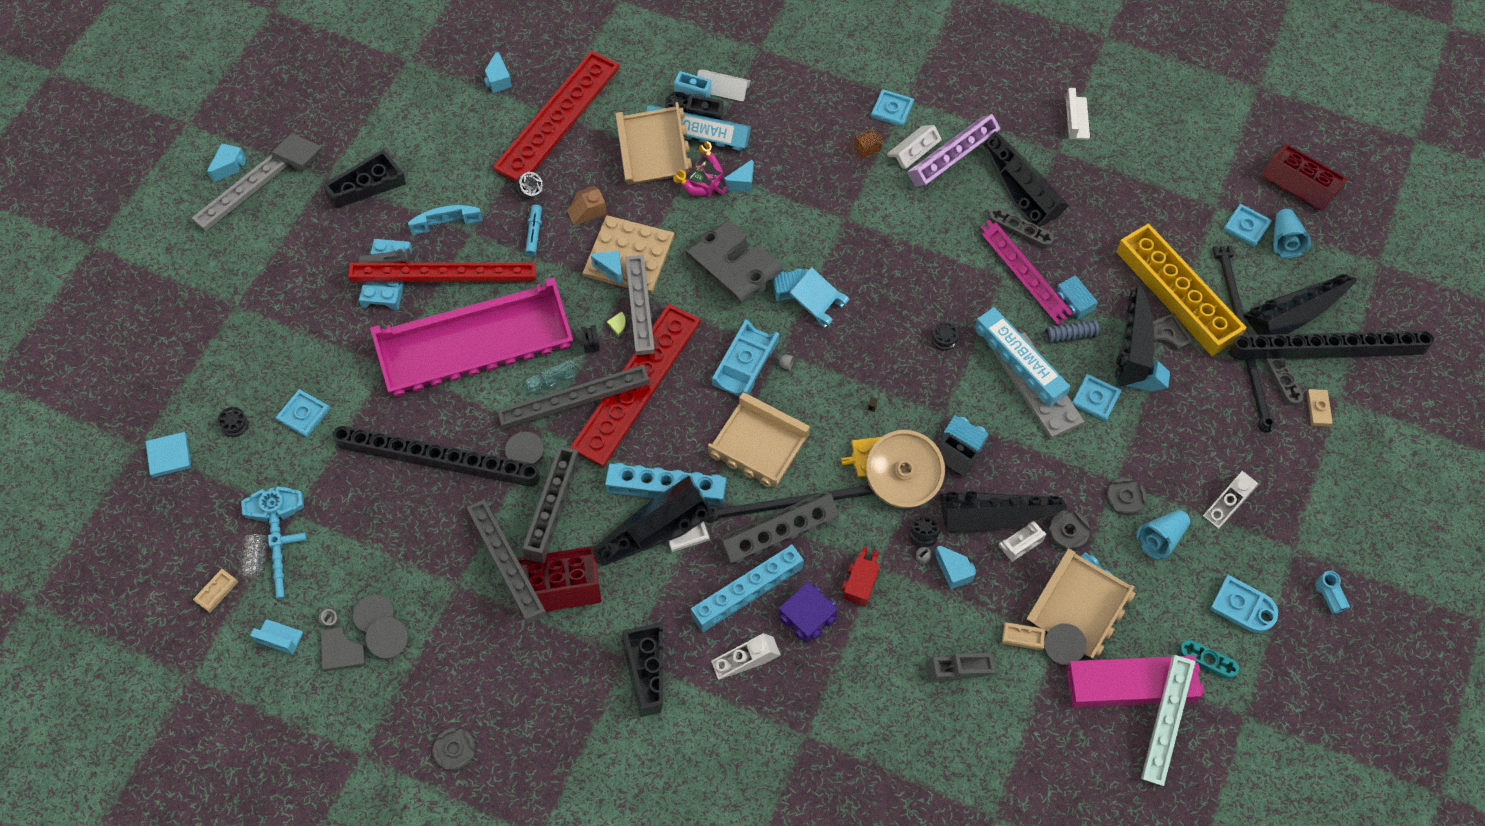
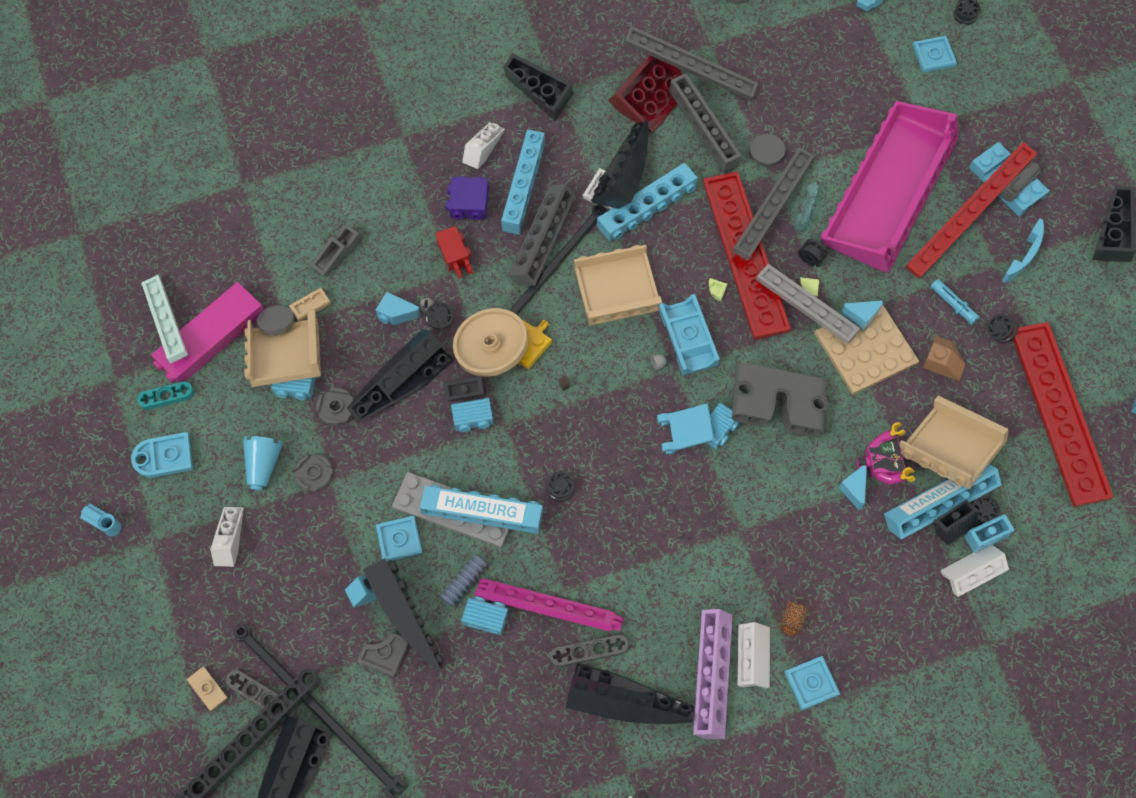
camera: 140 degrees right, 5 degrees up
(428, 450) = (815, 95): black beam -> none
(685, 378) = (717, 289): none -> yellowish green tile
(1022, 541) = (363, 368): white hinge -> none
(1180, 289) = (402, 699): yellow brick -> none

